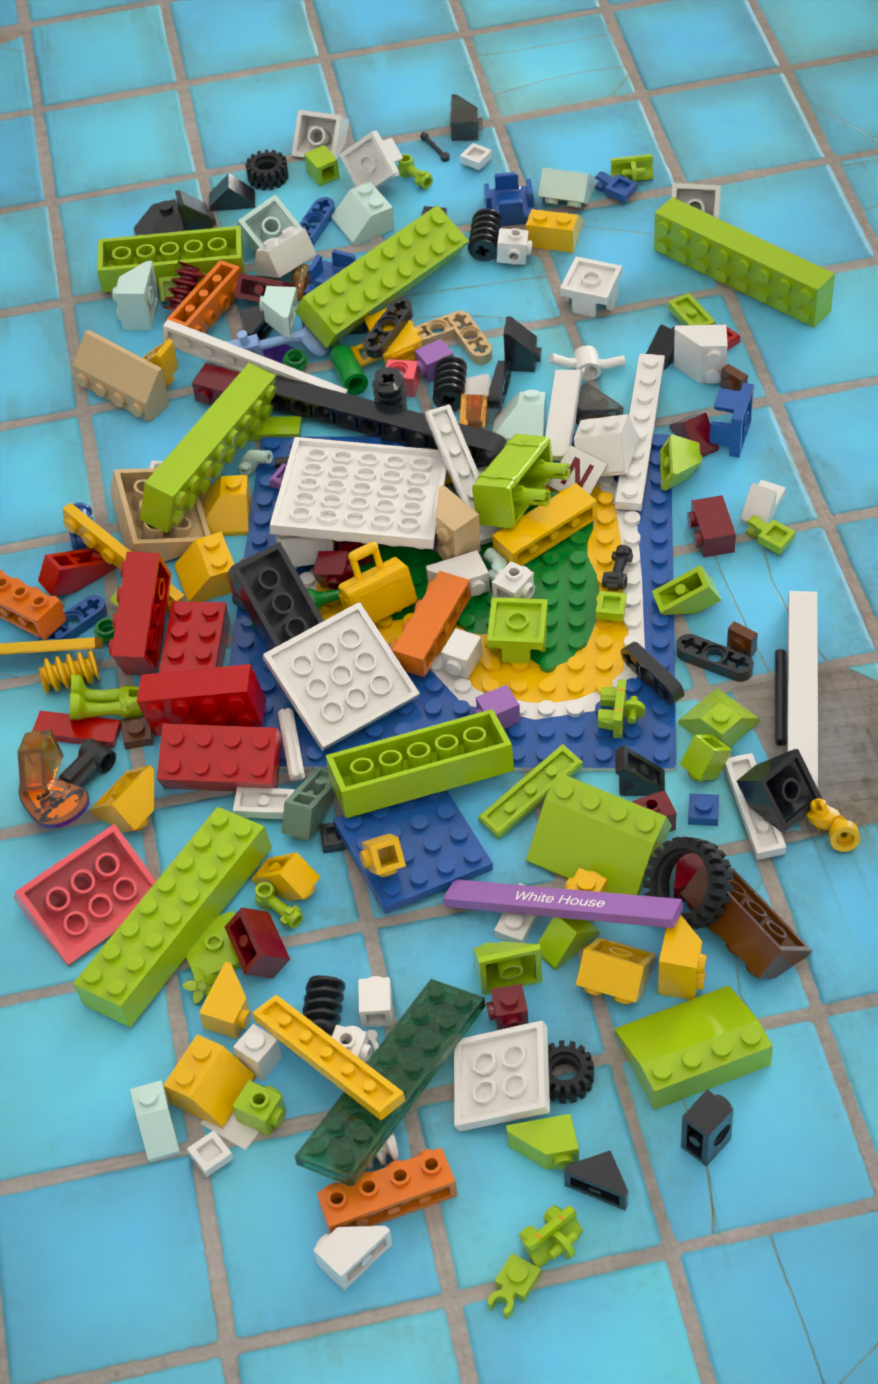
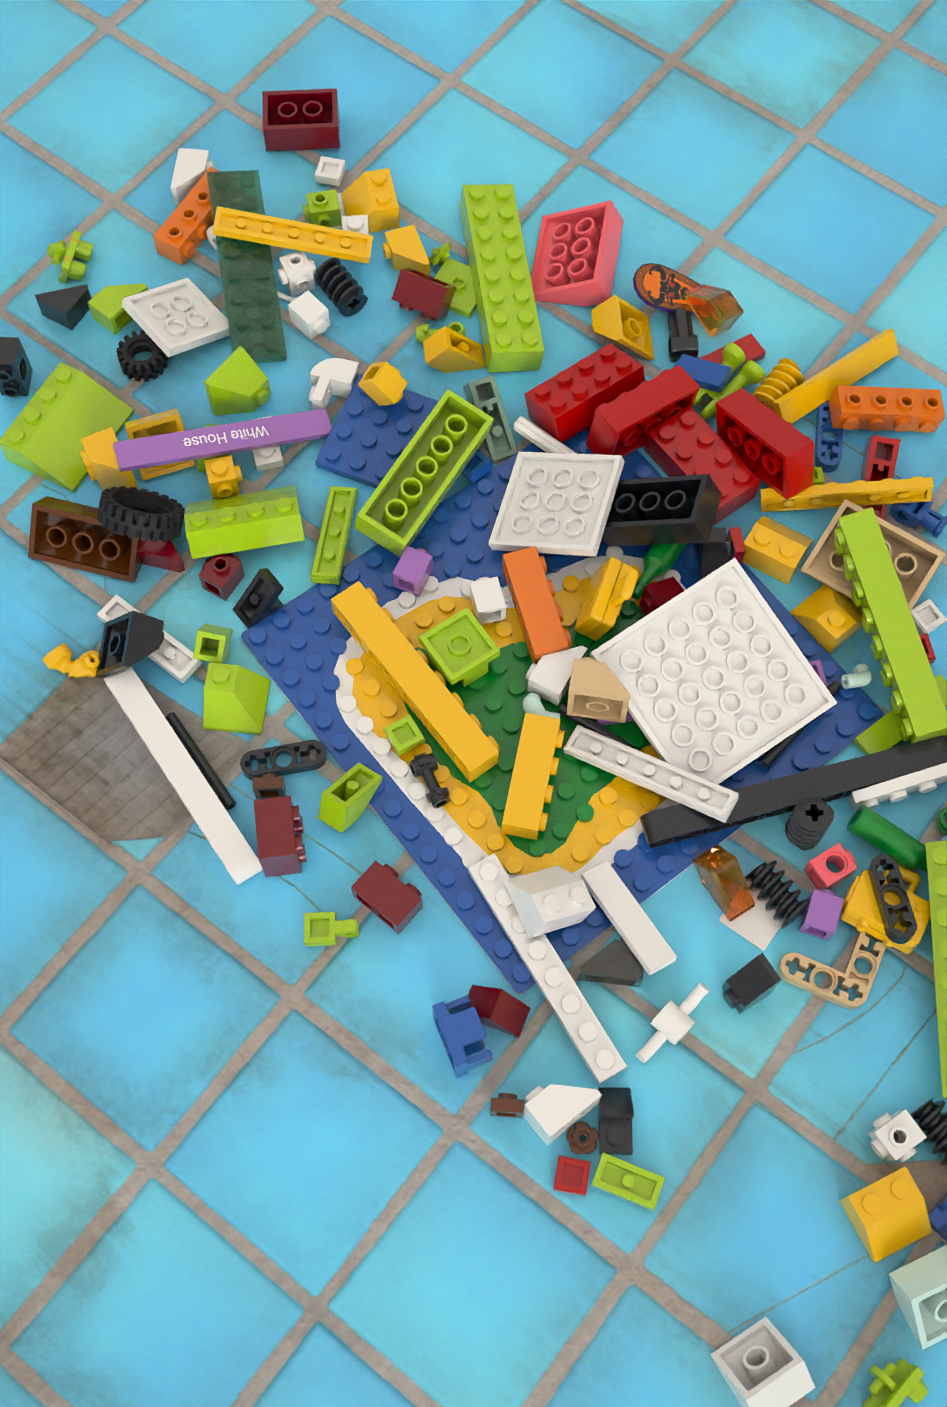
camera: 135 degrees right, 15 degrees up
(116, 709) = (705, 373): none -> blue tile
(155, 1121) = (385, 157): light aqua slope -> none
(185, 1225) = (301, 119): none -> dark red brick
(260, 802) = (514, 398): white plate -> none
(413, 926) = (331, 378): none -> white brick
(499, 384) = (727, 923): black beam -> none
(508, 1007) = (207, 360): dark red brick -> none
(513, 582) = (500, 689): white brick -> none
(514, 1281) = (80, 222): lime plate -> none
(516, 480) = (587, 780): lime piece -> none
(522, 415) = (665, 890): light aqua slope -> none
(569, 638) = (415, 681): none -> yellow brick
(584, 470) = (554, 858): white sticker -> none
(589, 284) = (762, 1135): white panel -> none
(614, 719) = (312, 626): lime hips -> none
(617, 187) = (879, 1344): blue plate -> none
(652, 673) = (316, 690): black beam -> none
(678, 461) = (473, 946): lime slope -> none
(703, 809) = (190, 614): blue plate -> none
(744, 262) = (631, 1293): lime brick -> none
(762, 501) = (364, 968): white slope -> none
(762, 591) = (279, 836): none -> dark red brick

